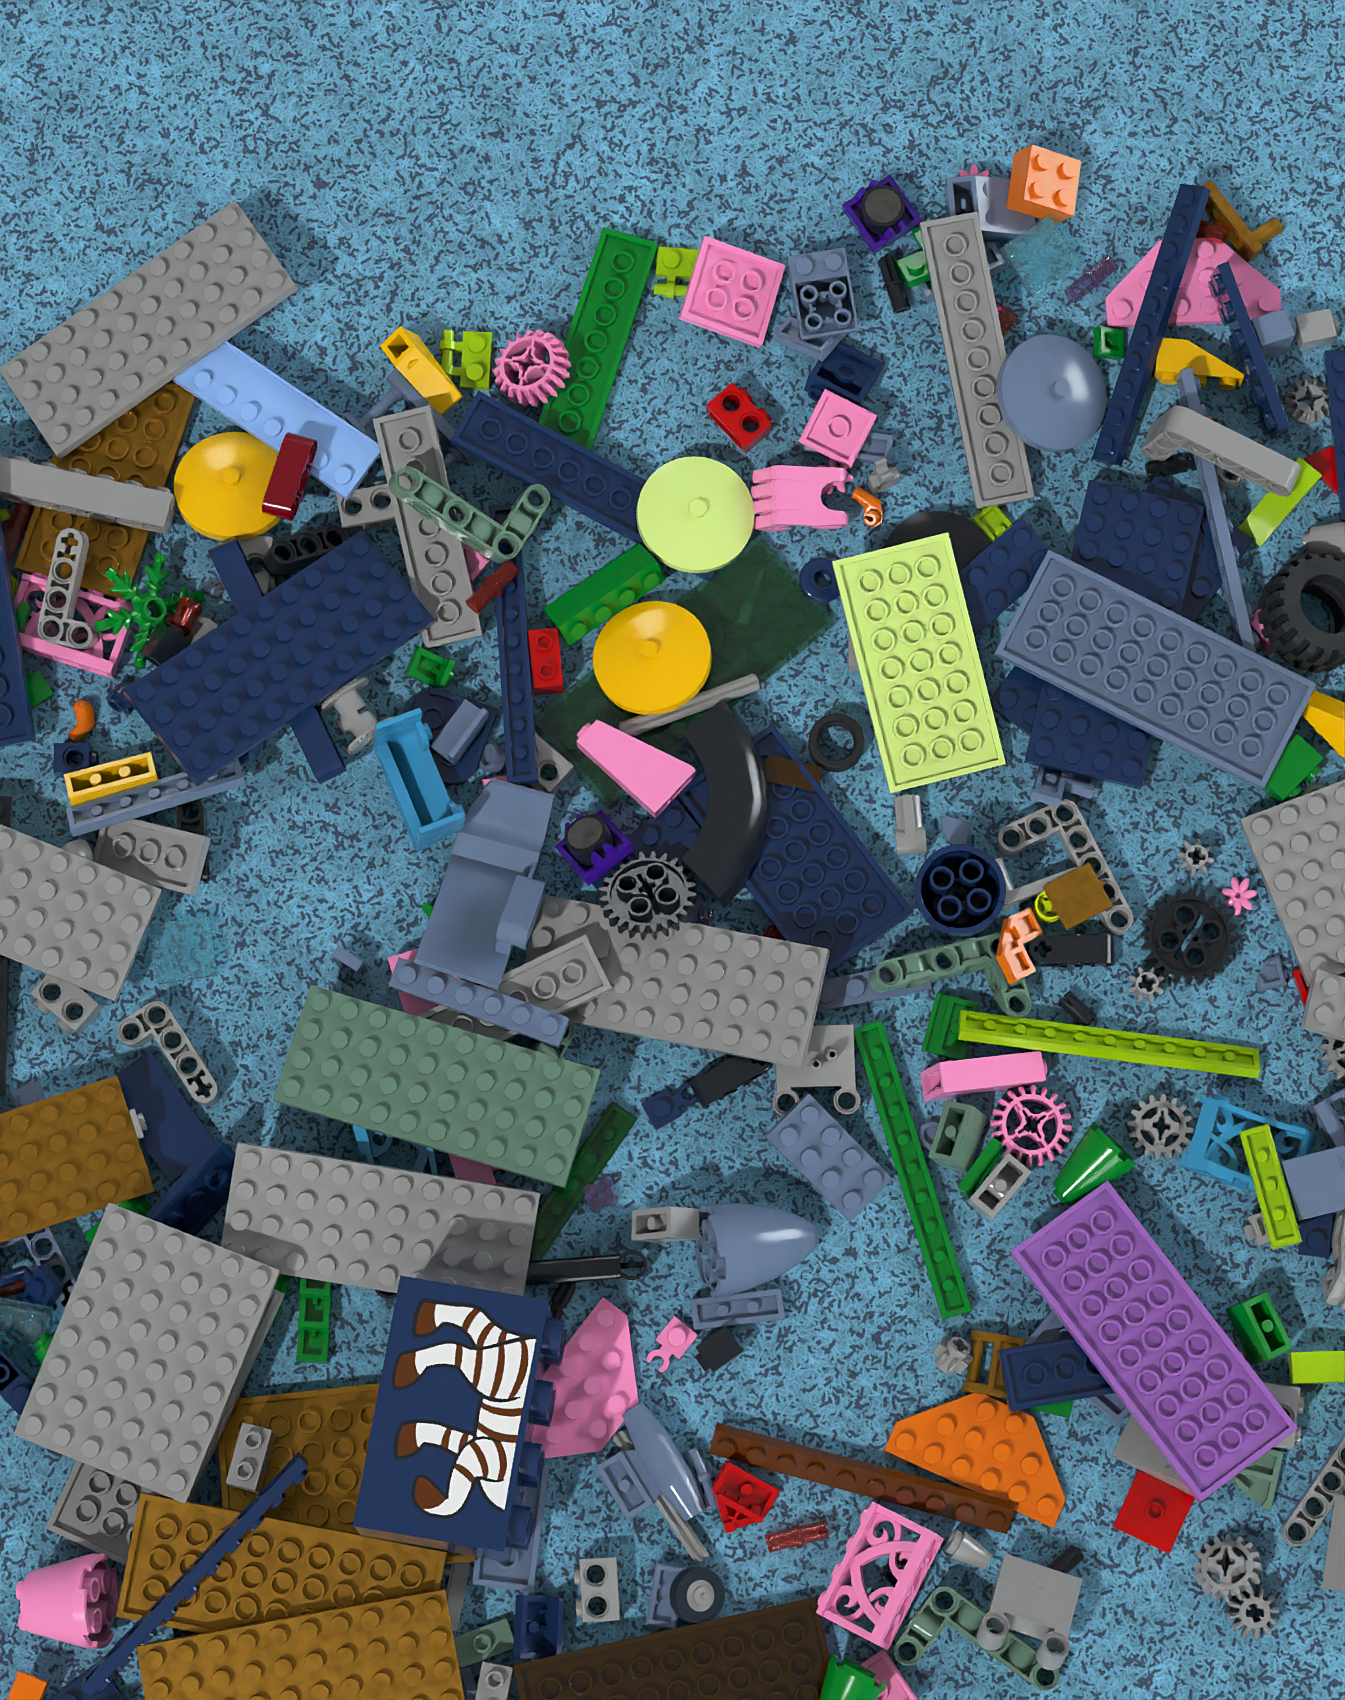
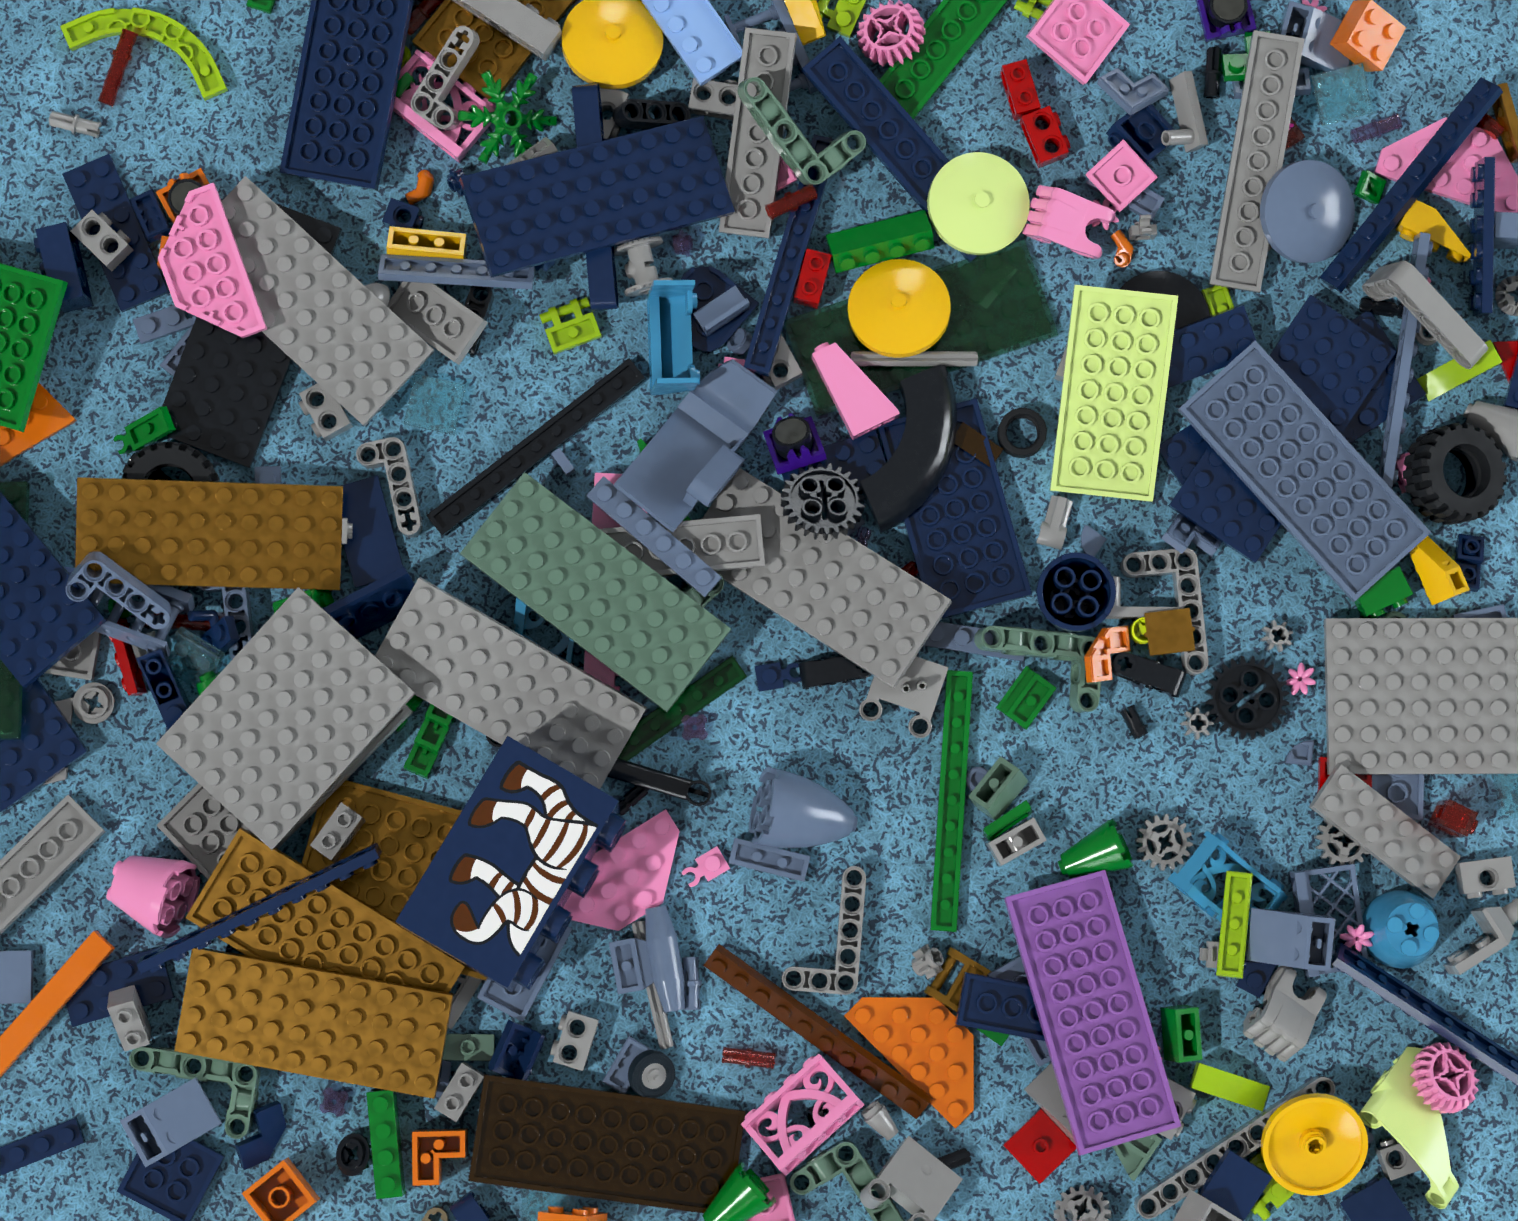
camera: 15 degrees right, 5 degrees up
(38, 689) = (395, 148): green tile -> none
(164, 644) = (508, 150): black brick -> none
(185, 614) = (533, 133): clear red bush -> none
(289, 476) = (660, 49): dark red beam -> none
(304, 817) = (572, 332): none -> lime plate
(312, 955) = (536, 447): none -> black plate
(391, 675) = (682, 243): none -> clear purple plate
(430, 668) = (716, 249): green bracket -> none
(665, 1224) = (737, 771): light grey brick -> none
(693, 376) = (1019, 88): none -> red brick
(717, 1350) = (741, 886): black brick -> none
(741, 1497) = (716, 1010): red slope -> none
(807, 583) = (1048, 294): dark blue piece -> none
(822, 293) = (1151, 59): sand blue slope -> none
(828, 1157) = (888, 765): sand blue plate -> none
(852, 1370) = (842, 943): none -> light grey beam
(885, 337) = (1190, 119): none -> light grey piece
(982, 1075) = (1037, 747): bright pink slope -> none
(1038, 1138) = (1058, 790): bright pink gear -> none
(1108, 1044) = (1148, 760): lime plate -> none

